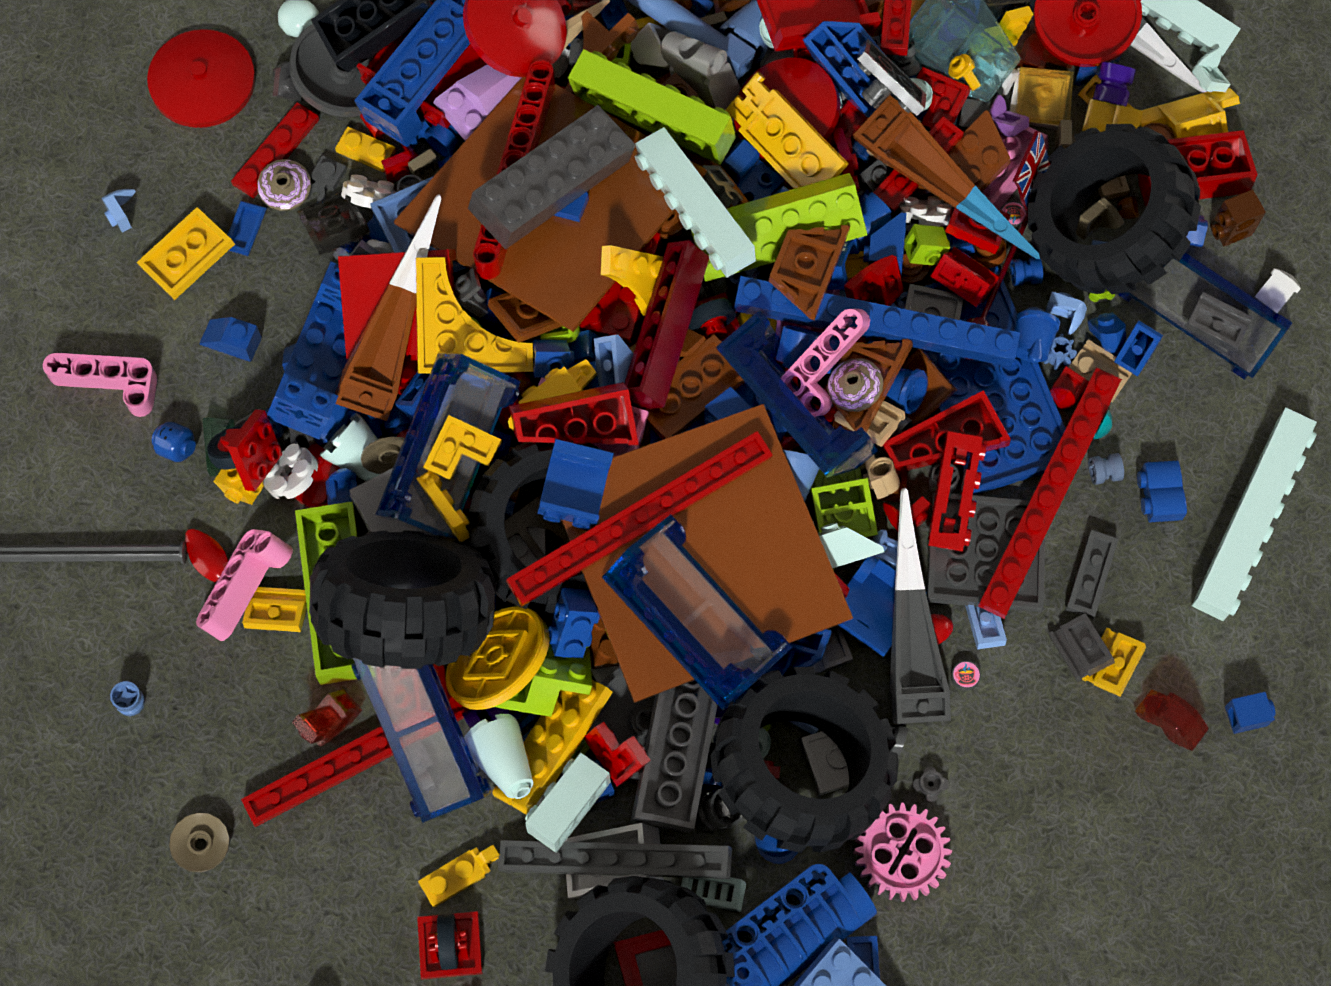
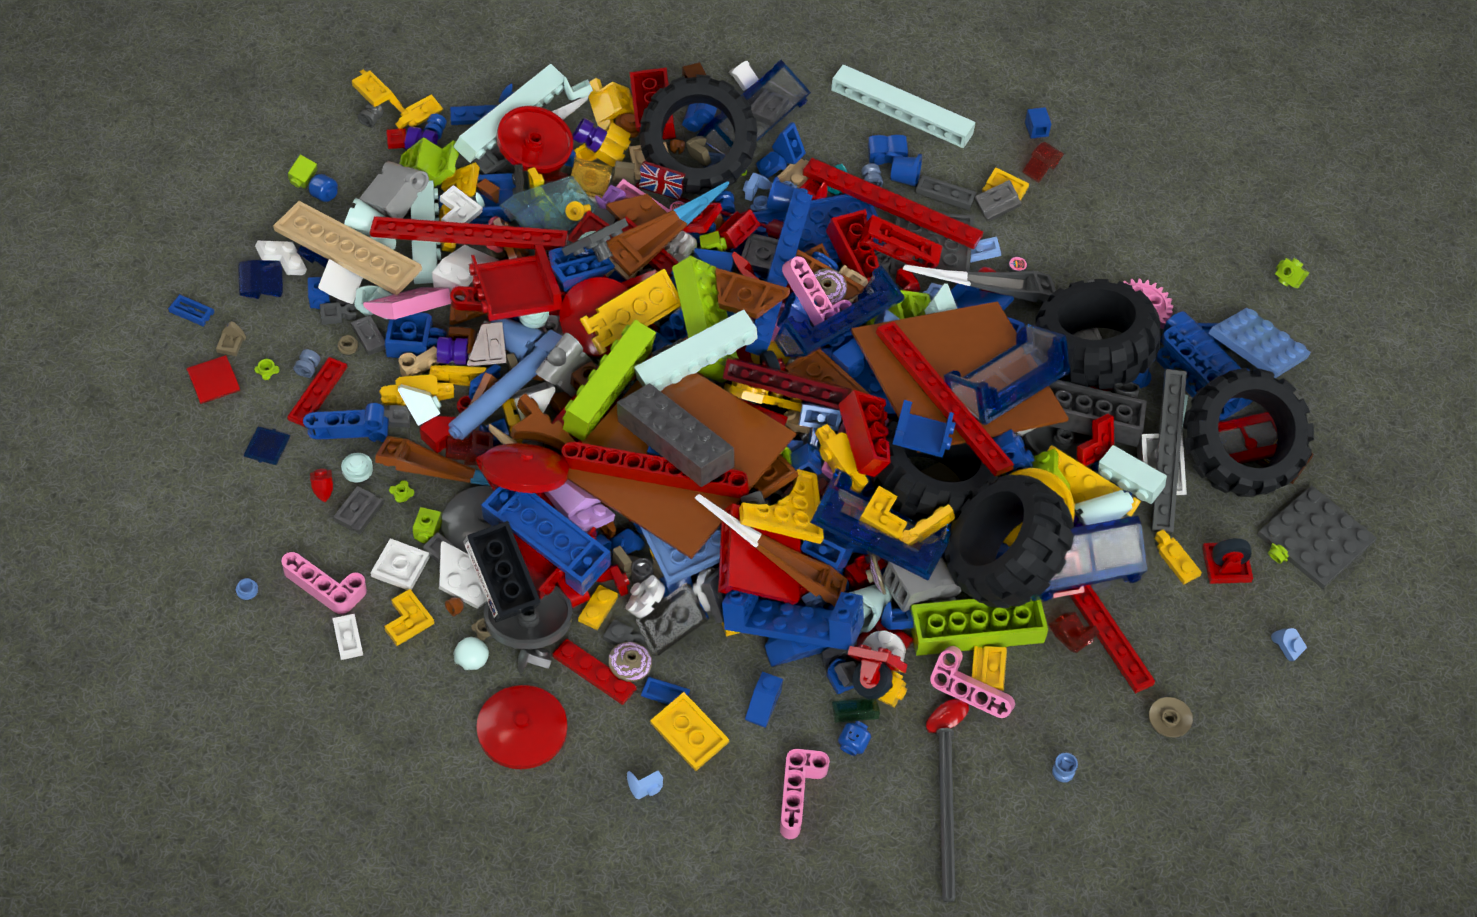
camera: 90 degrees left, 15 degrees down
(1124, 513) = (905, 169): none -> blue hat

